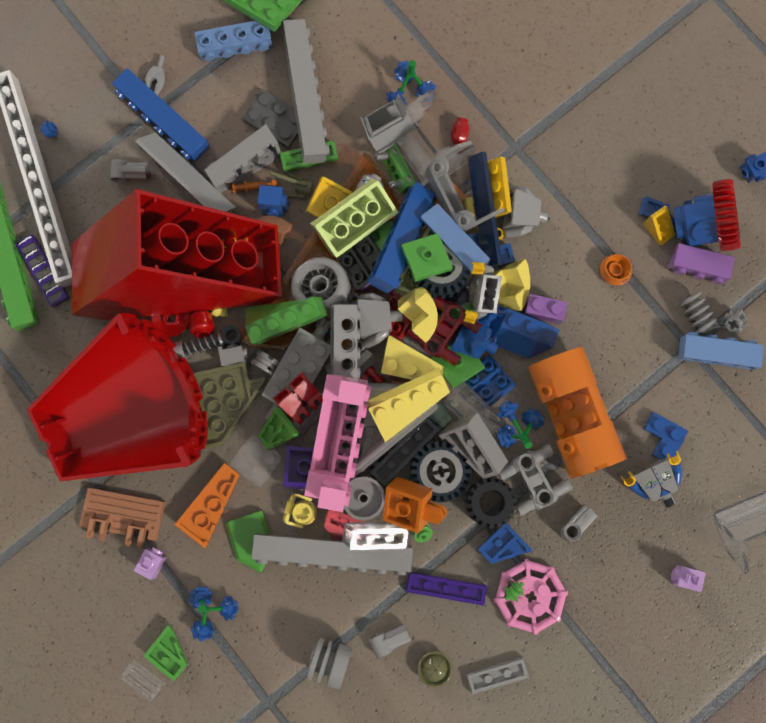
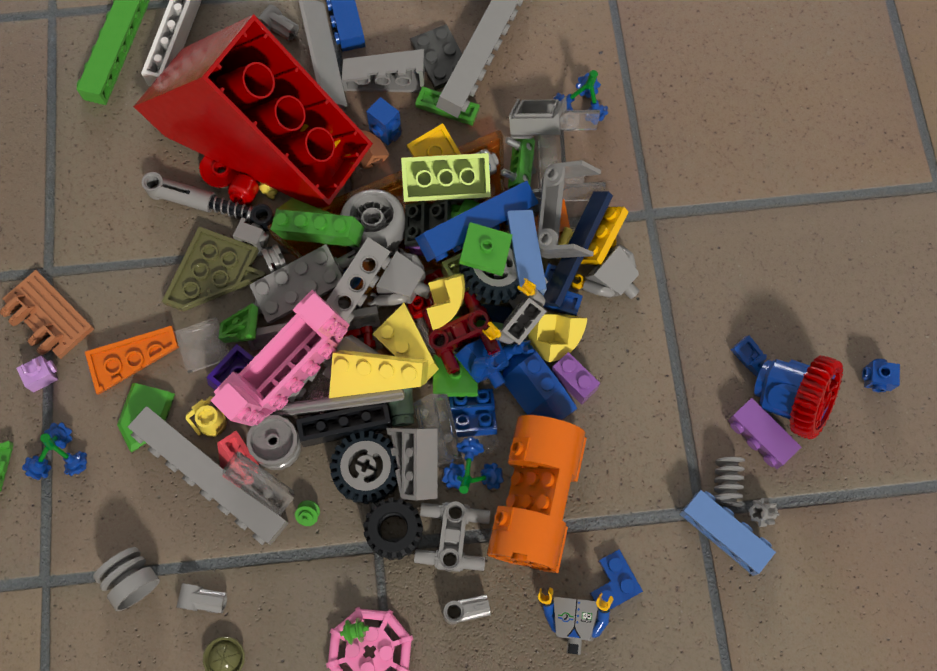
camera: 30 degrees right, 10 degrees down
(41, 270) = (142, 43): tile -> none
(122, 406) = (118, 208): red cone -> none
(251, 185) = (372, 98): orange piece -> none
(291, 401) = (269, 304): red legs -> none
(303, 185) = (421, 126): olive plant -> none
(411, 505) = (311, 476): orange brick -> none
(446, 588) = (292, 586): dark purple tile -> none
(460, 131) = (607, 165): red plant -> none
(503, 545) = (377, 581): blue wing -> none
(616, 269) = (673, 386): orange hat -> none
(660, 226) = (745, 370): yellow slope -> none

